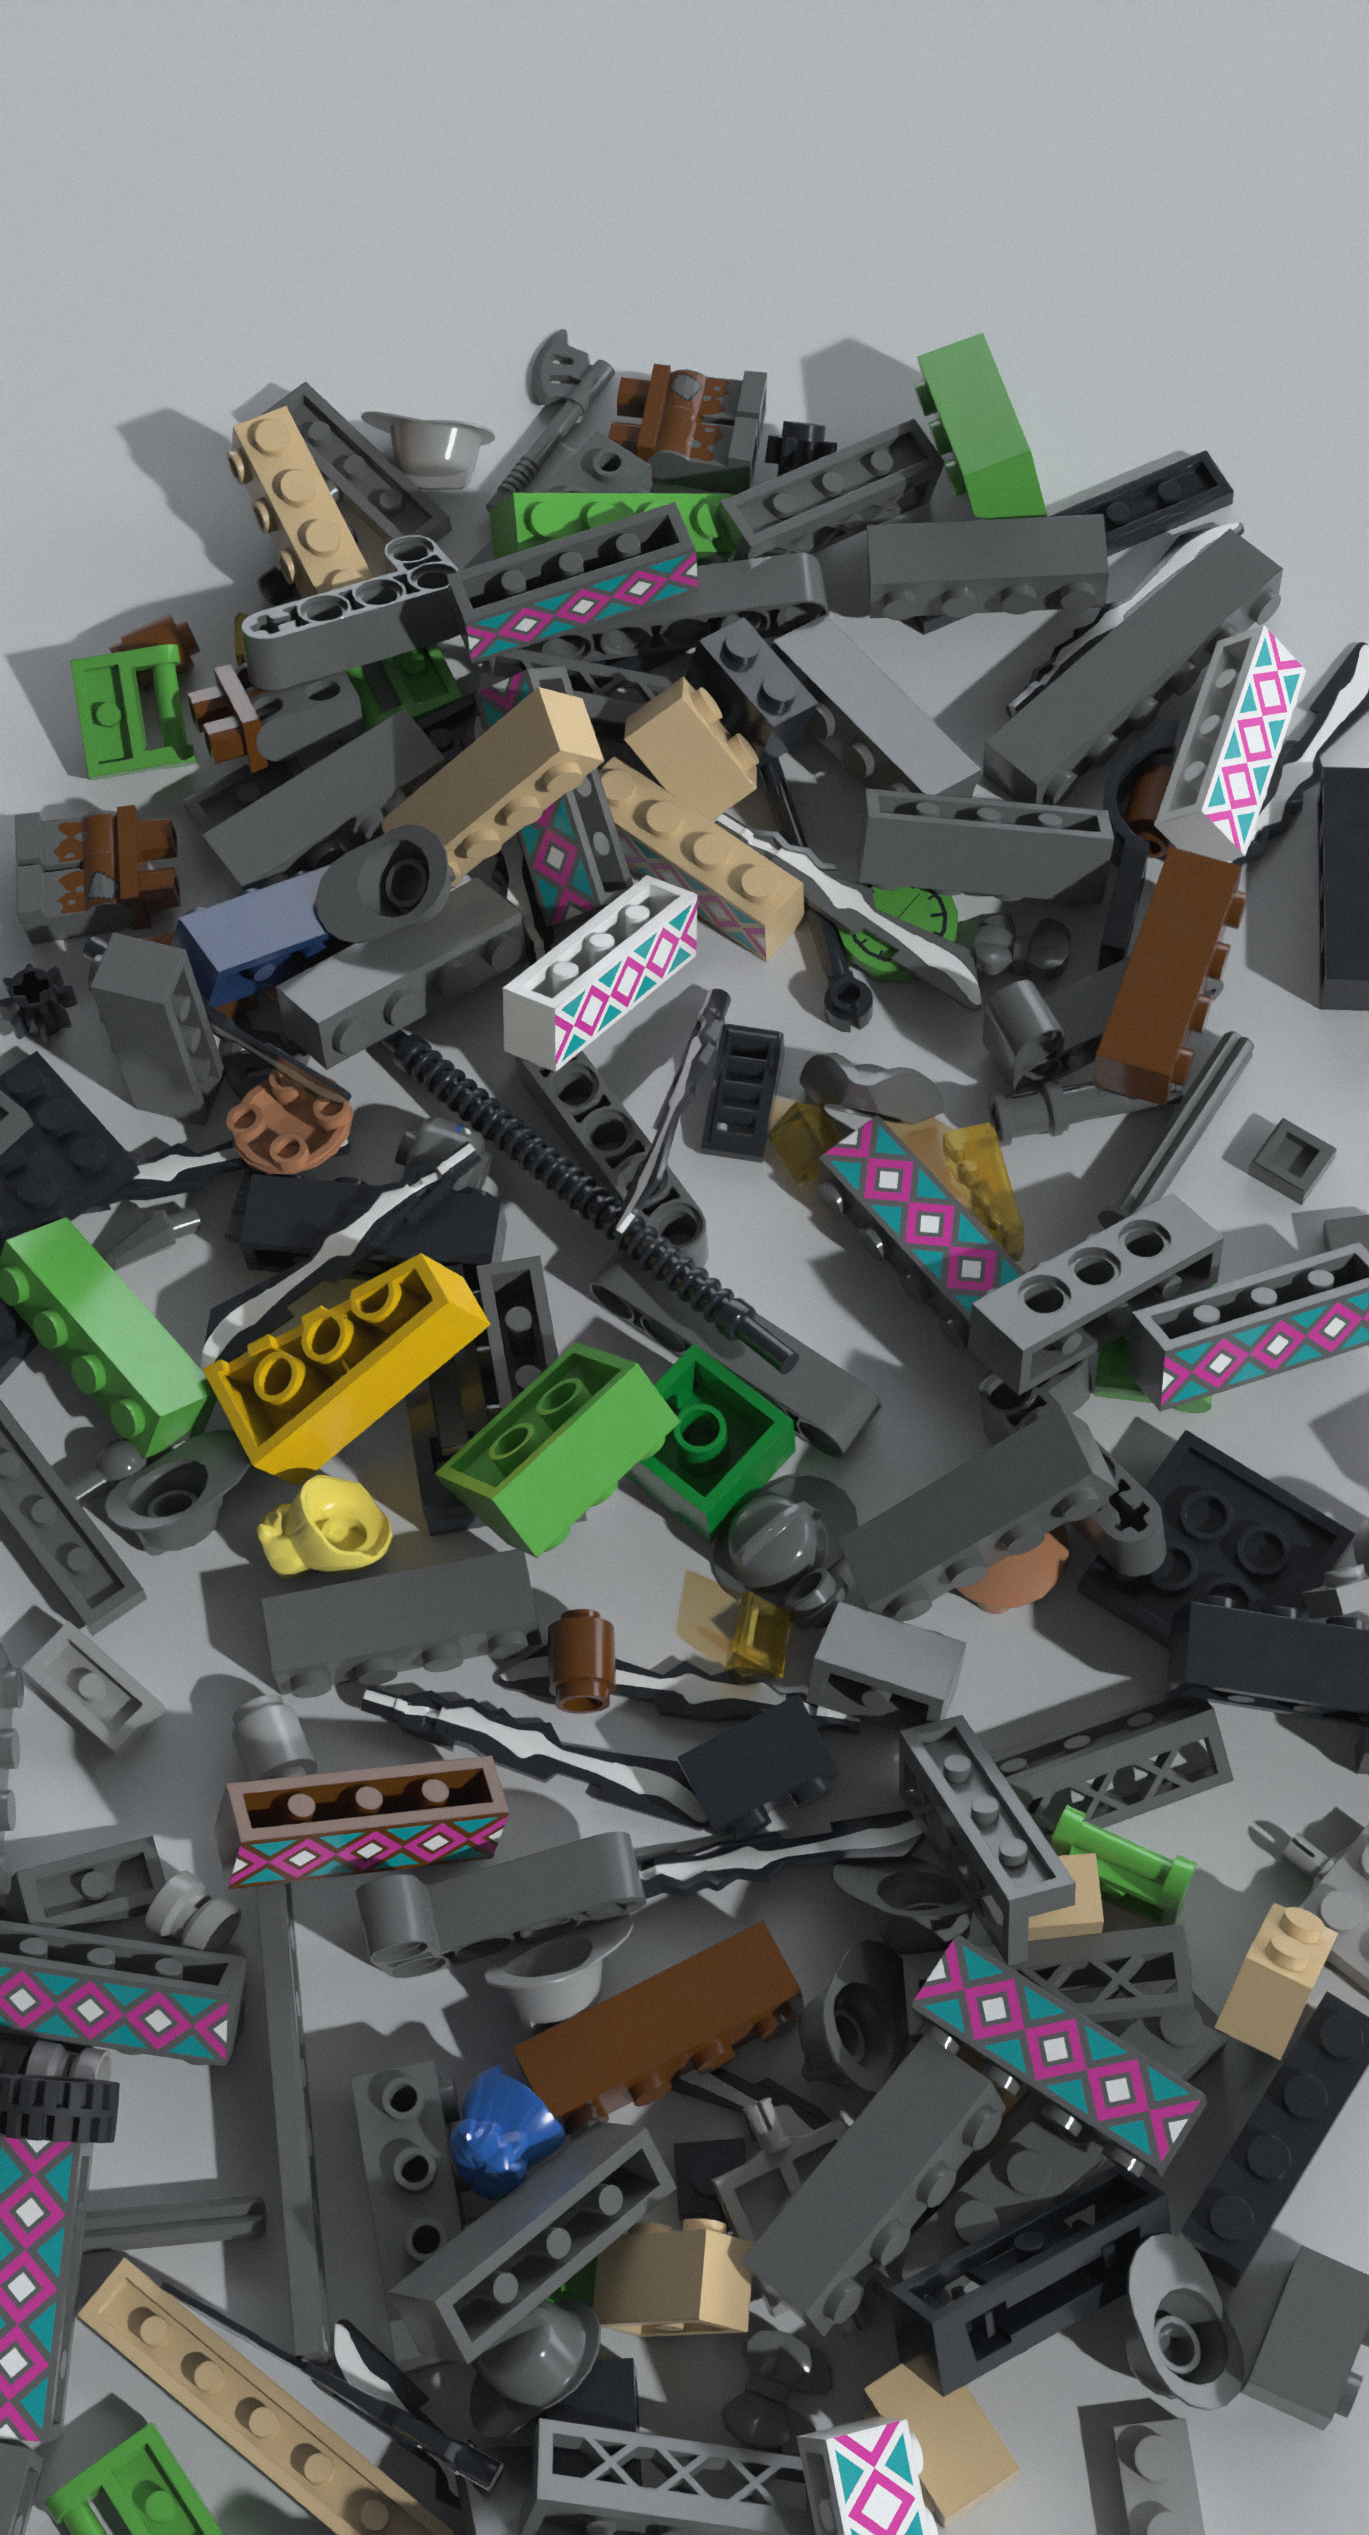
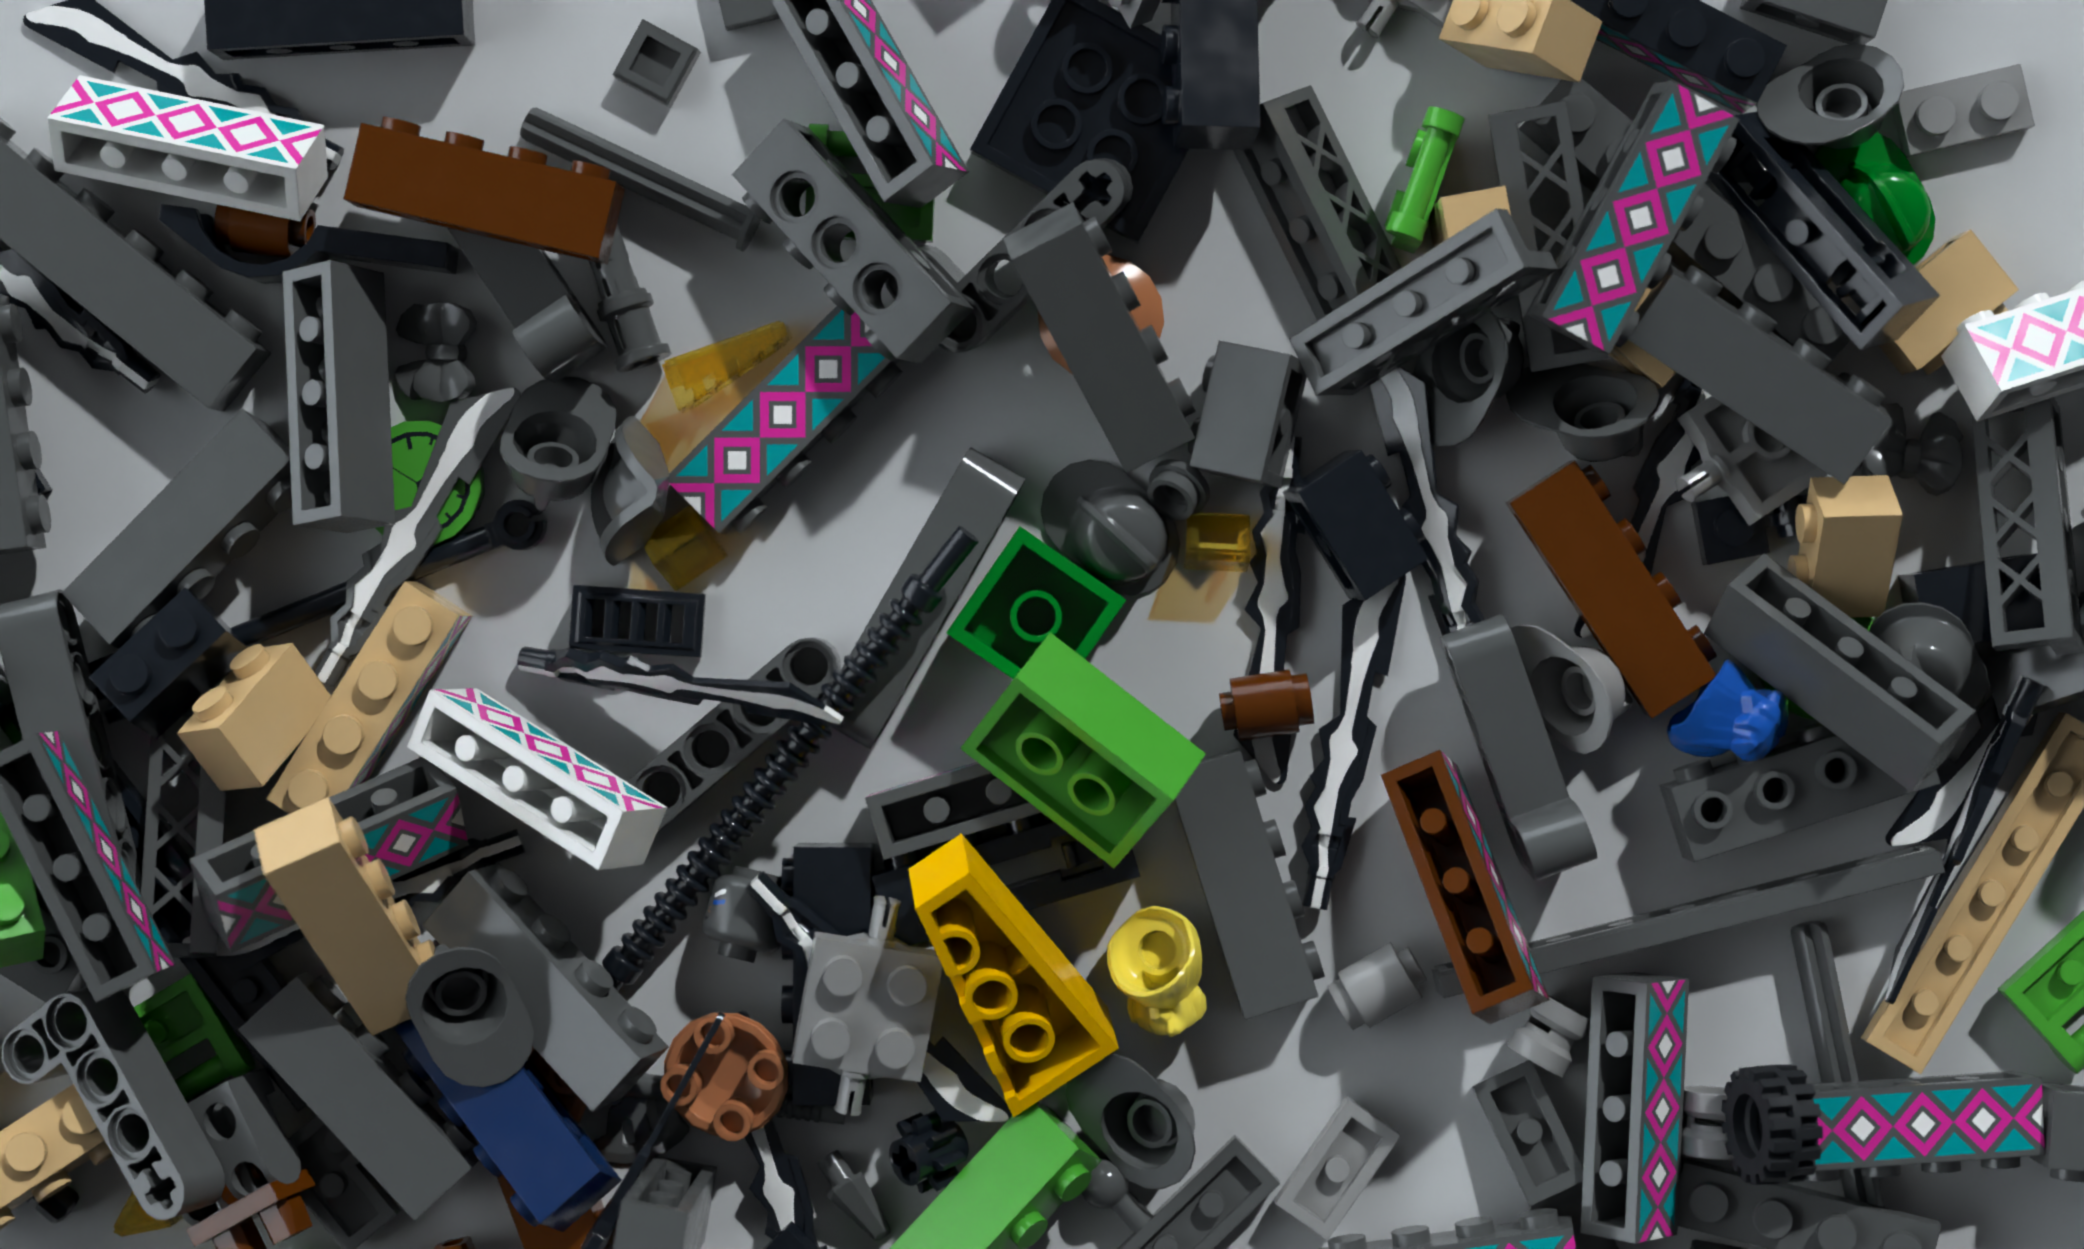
camera: 95 degrees left, 25 degrees up
(183, 1299) = (928, 1151): none -> black gear
(330, 1233) = (867, 1006): none -> light grey plate
(927, 1030) = (558, 438): none -> dark grey piece
(1063, 2389) = (1887, 190): none -> green piece

